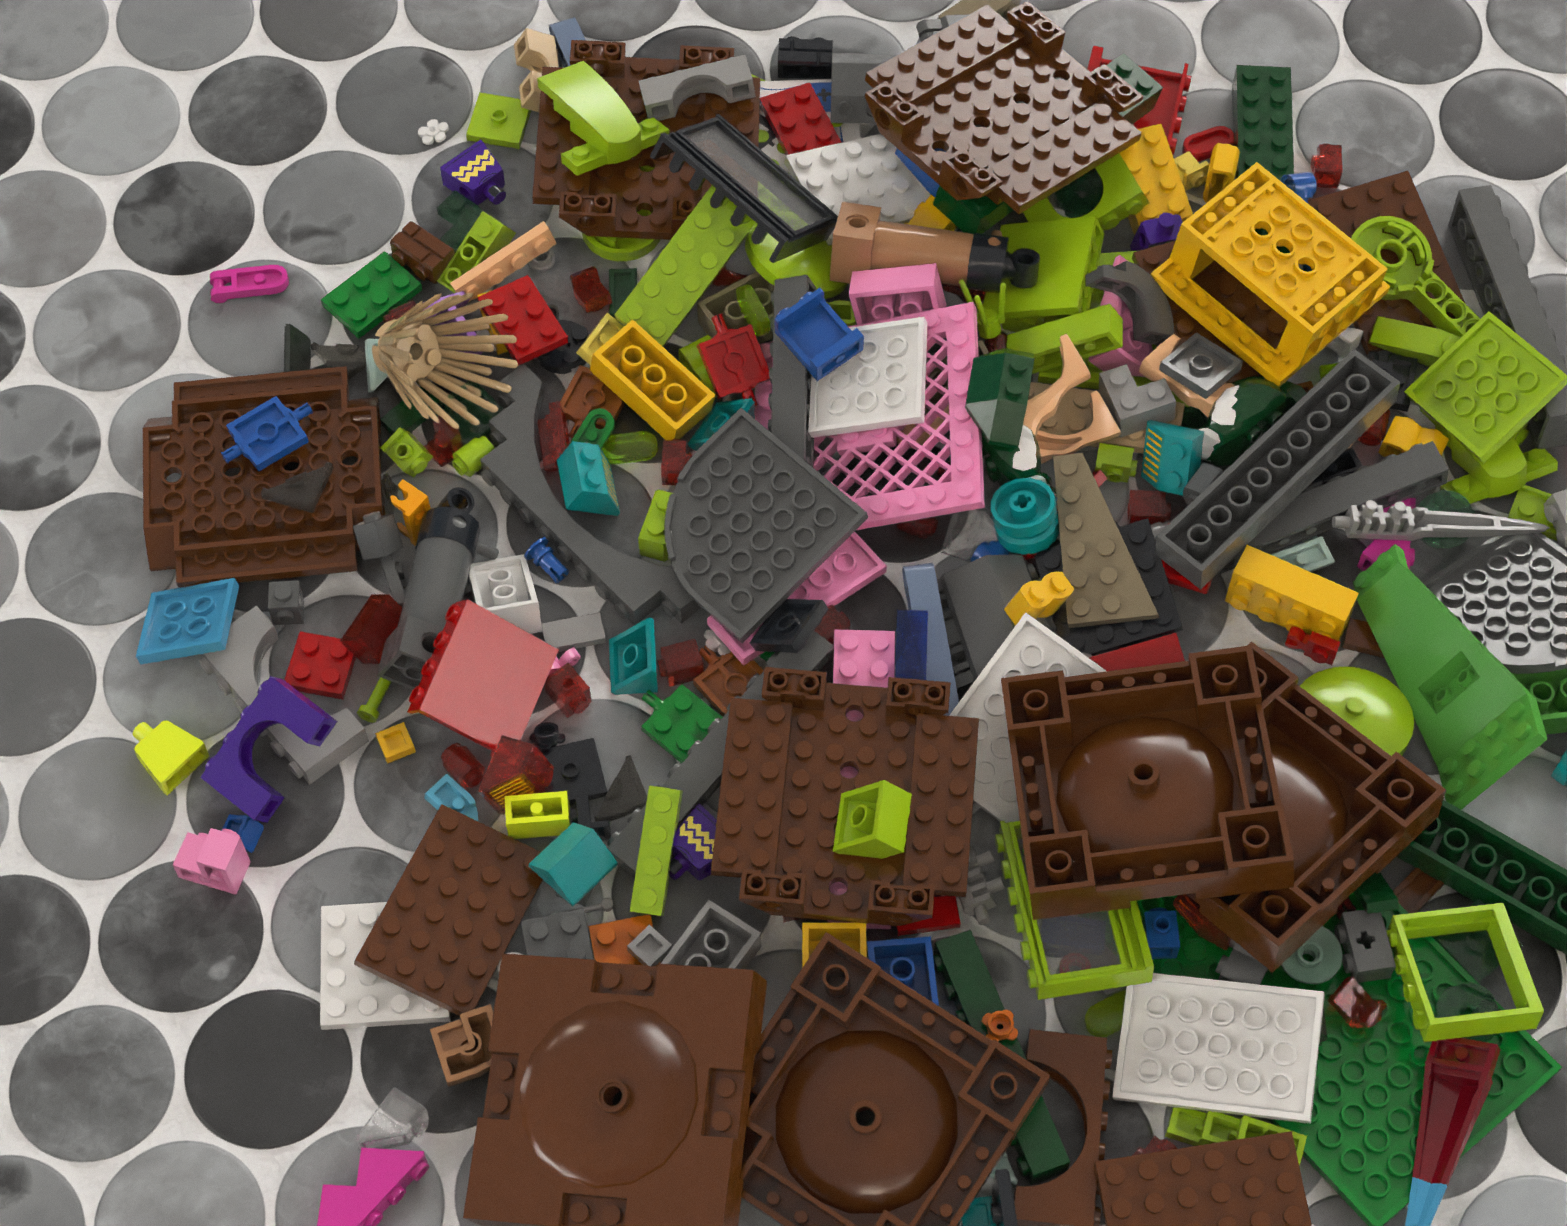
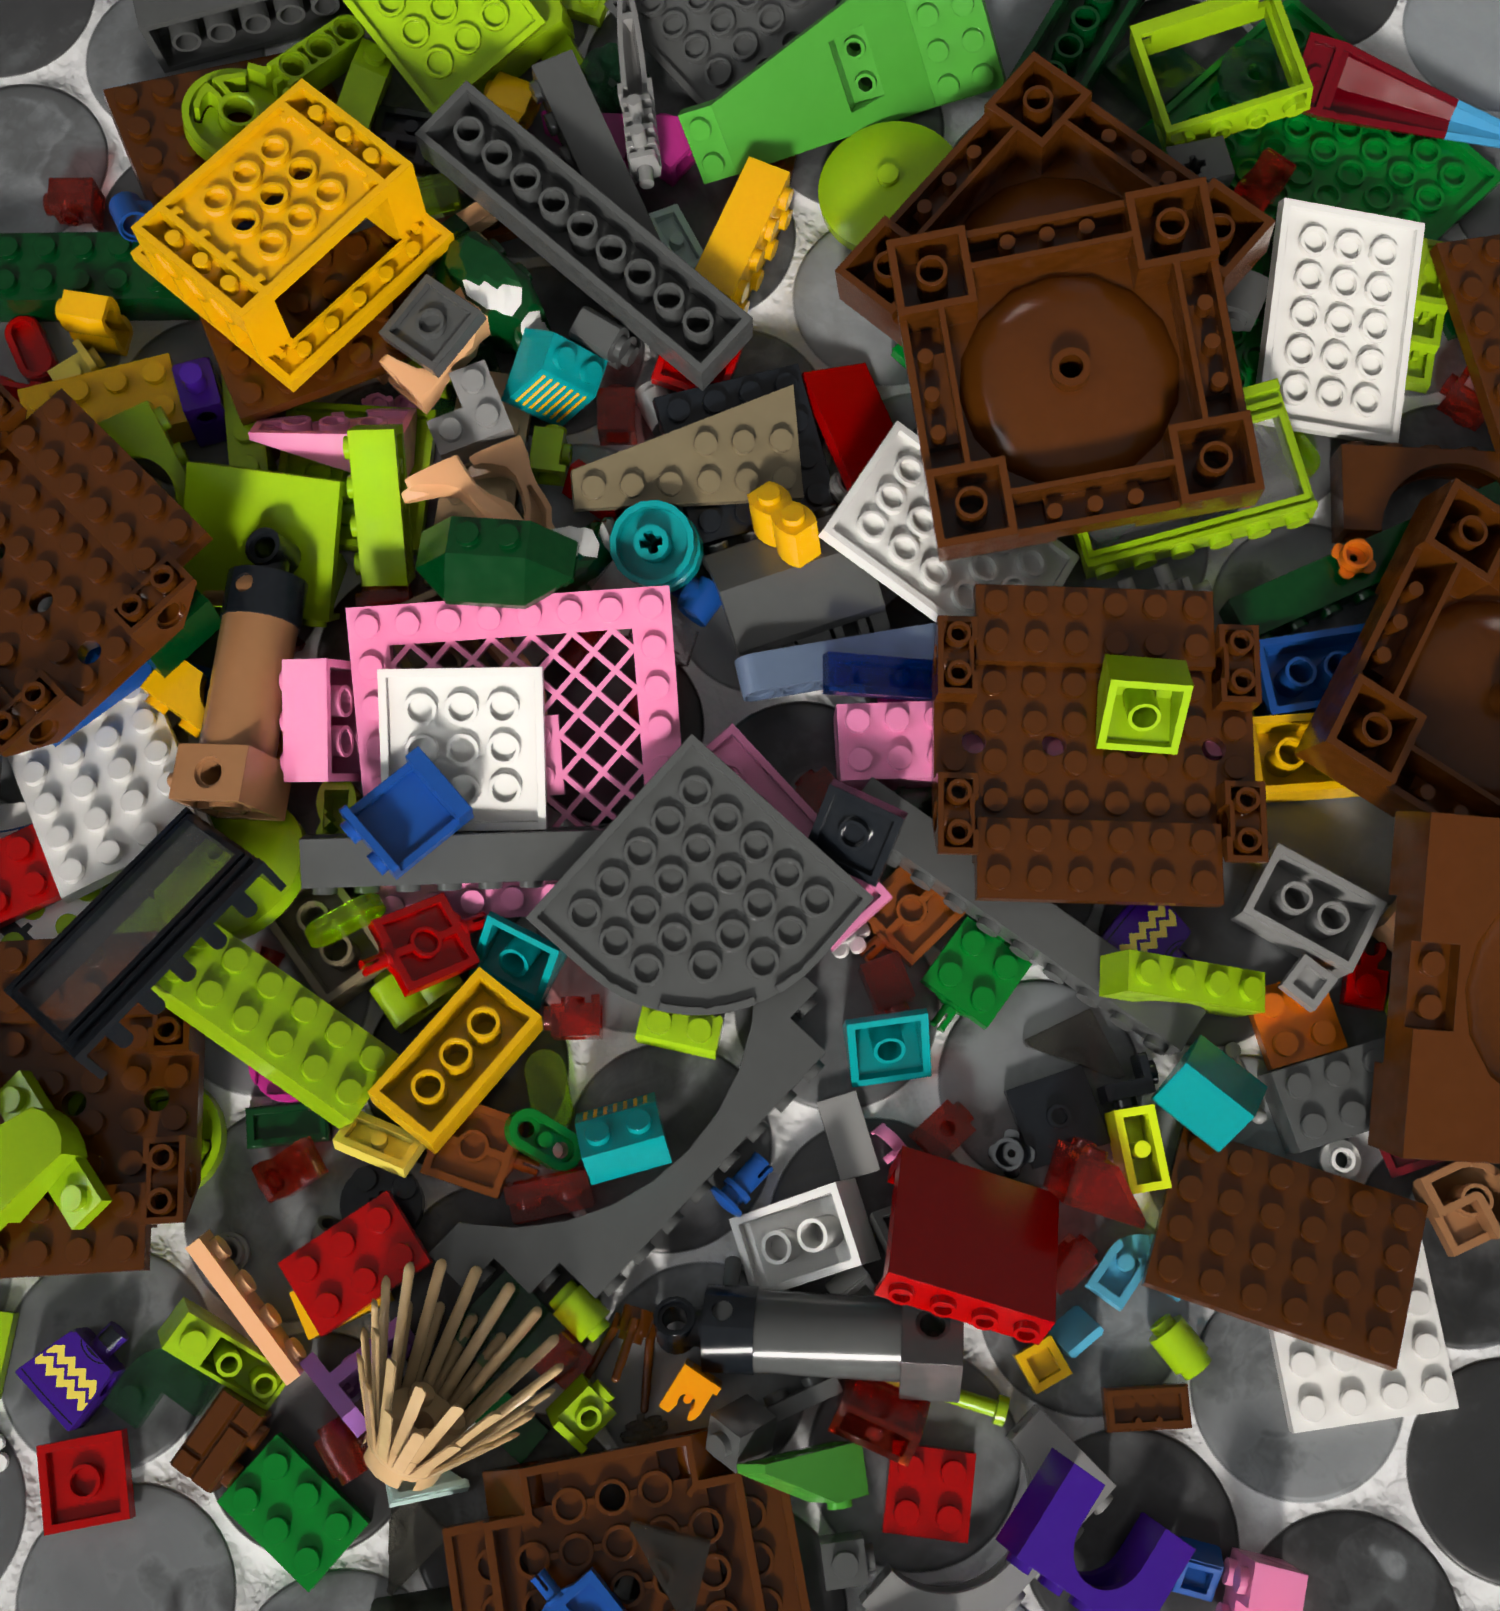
camera: 95 degrees left, 15 degrees up
(344, 588) = (818, 1473): none -> bright green slope
(355, 808) = (1146, 1407): none -> reddish brown plate
(394, 833) = (1179, 1346): none -> lime brick
(408, 182) = (85, 1481): none -> red plate
(413, 767) = (1075, 1331): none -> medium azure slope
(454, 480) = (634, 1326): none -> reddish brown plant
(987, 320) = (335, 607): lime plant -> none
(1142, 295) = (322, 401): dark grey arch -> none
(1316, 646) = (798, 223): red plate -> none

